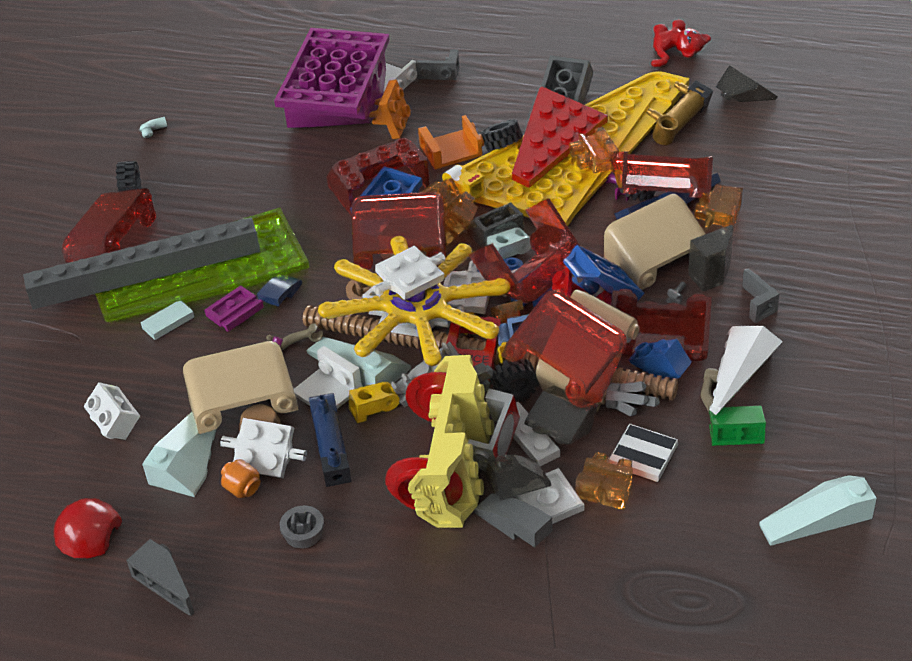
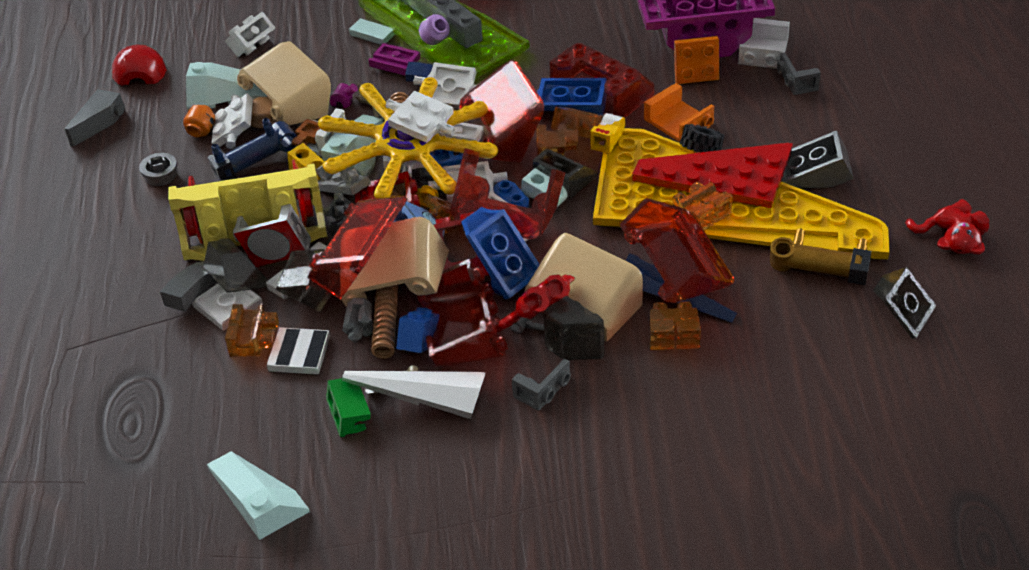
camera: 70 degrees right, 0 degrees up
(230, 258) = (434, 29): none -> lavender head
(314, 273) = (452, 80): none -> white plate
(330, 383) = (306, 133): none -> dark orange plate
(684, 252) = (539, 299): none -> red animal

